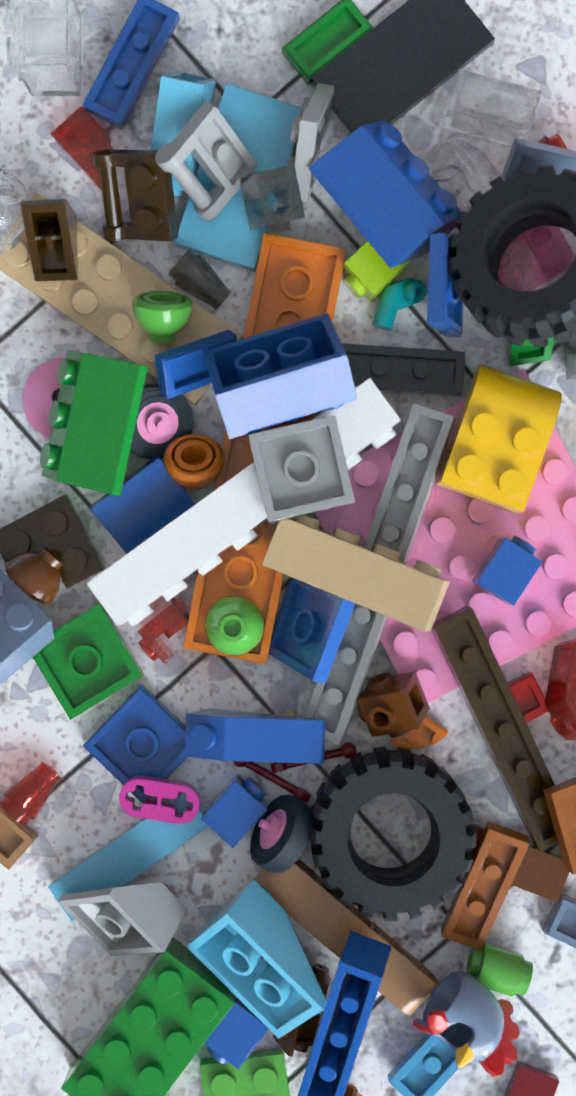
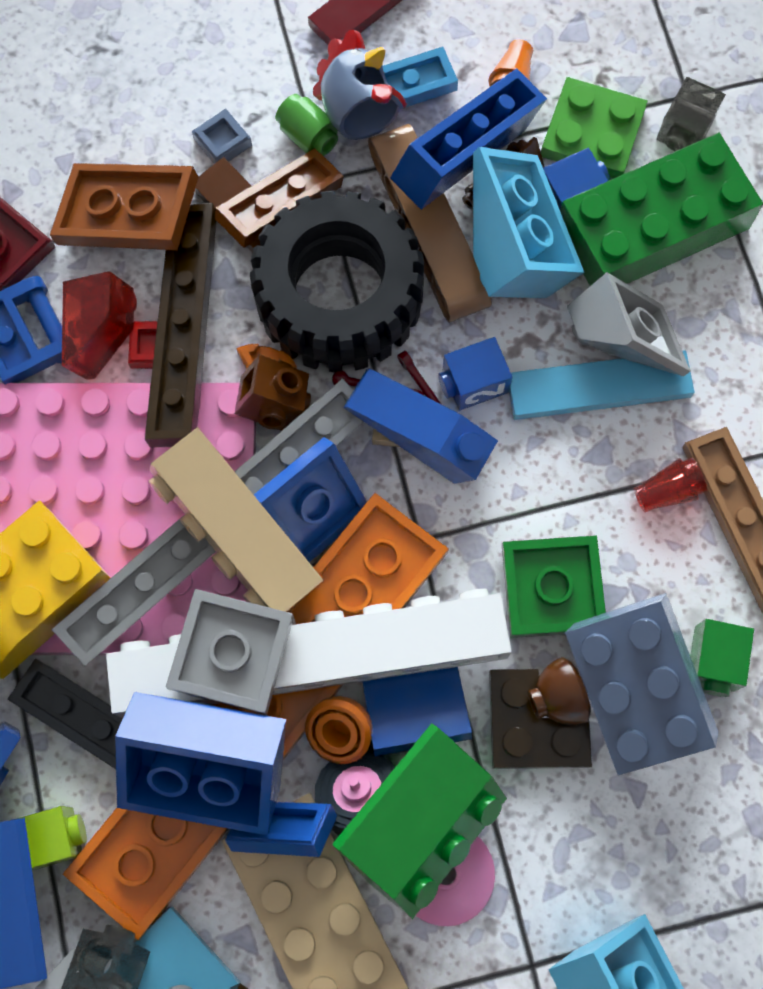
camera: 150 degrees left, 15 degrees down
(140, 740) = (537, 482): blue tile -> none
(158, 809) = (550, 408): dark pink beam -> none
(162, 314) = (289, 903): bright green brick -> none
(167, 622) = (451, 581): clear red bracket -> none
(199, 279) = (234, 928): clear smoke cone -> none
(234, 625) = (385, 543): bright green brick -> none
(281, 834) = (440, 326): black wheel -> none
(397, 297) = (40, 796): teal arm -> none
(508, 569) = (90, 460): blue brick -> none

